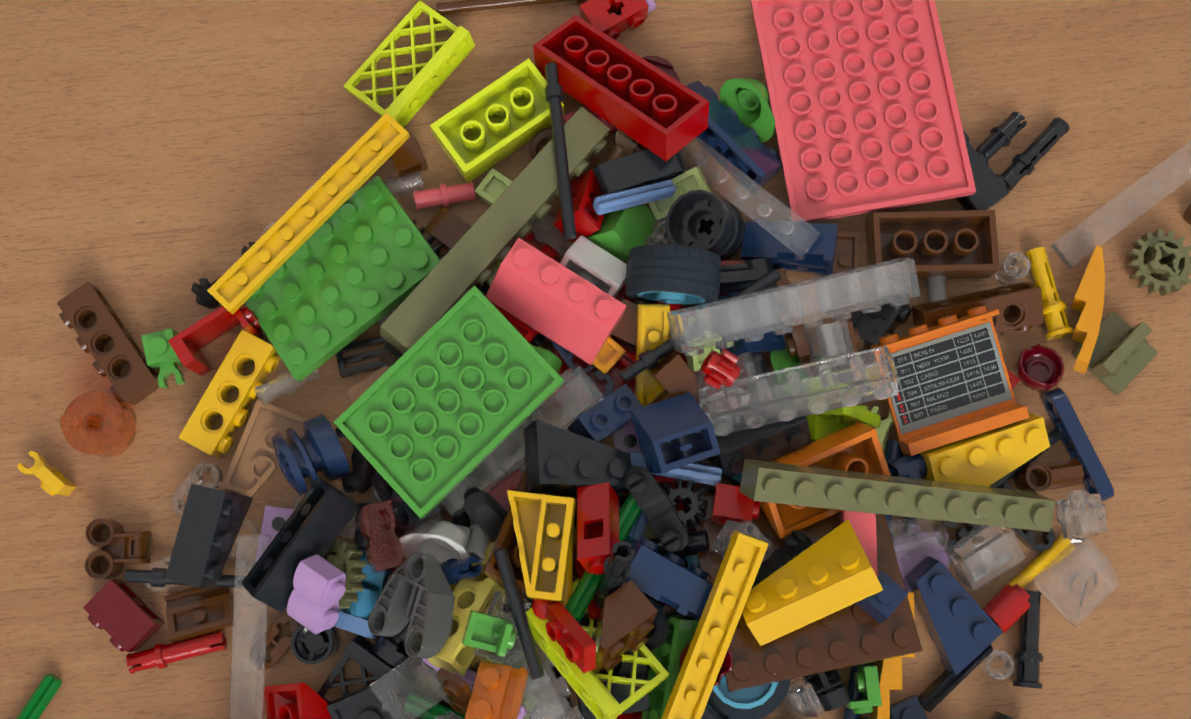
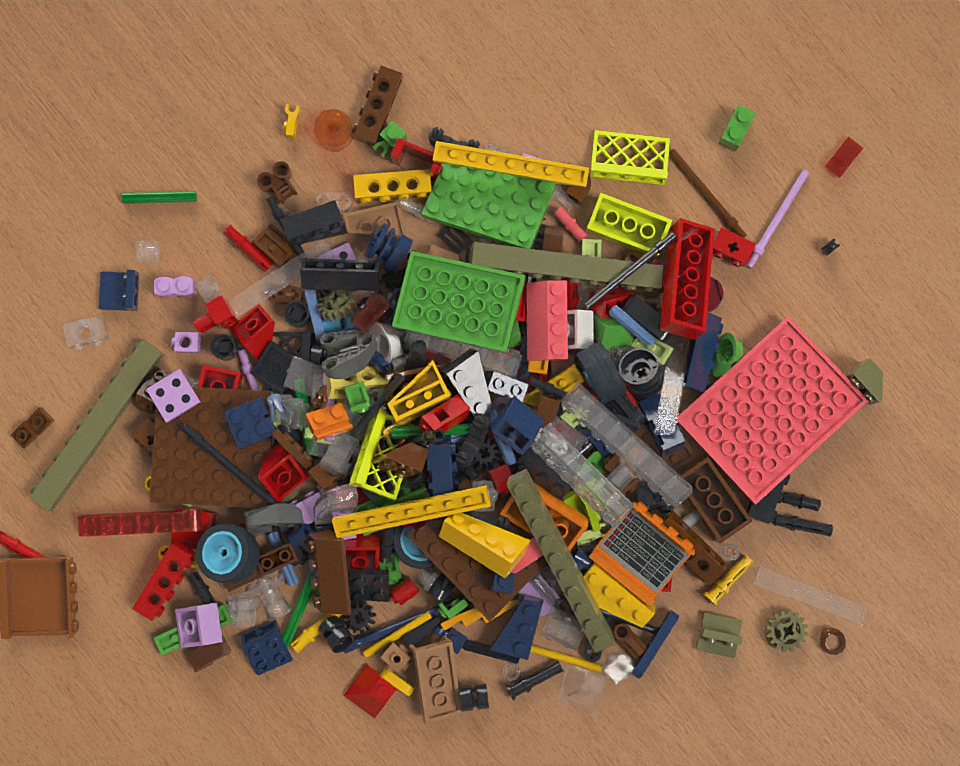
camera: 55 degrees right, 5 degrees up
(123, 616) = (248, 209): dark red brick -> none
(316, 594) = (321, 299): lavender brick -> none
(567, 632) = (383, 434): red plate -> none
(720, 368) = (566, 428): red gear -> none
(1007, 606) = (542, 656): red brick -> none
(1040, 367) = (683, 599): dark red hair -> none
(1090, 302) = (738, 603): light orange slope -> none

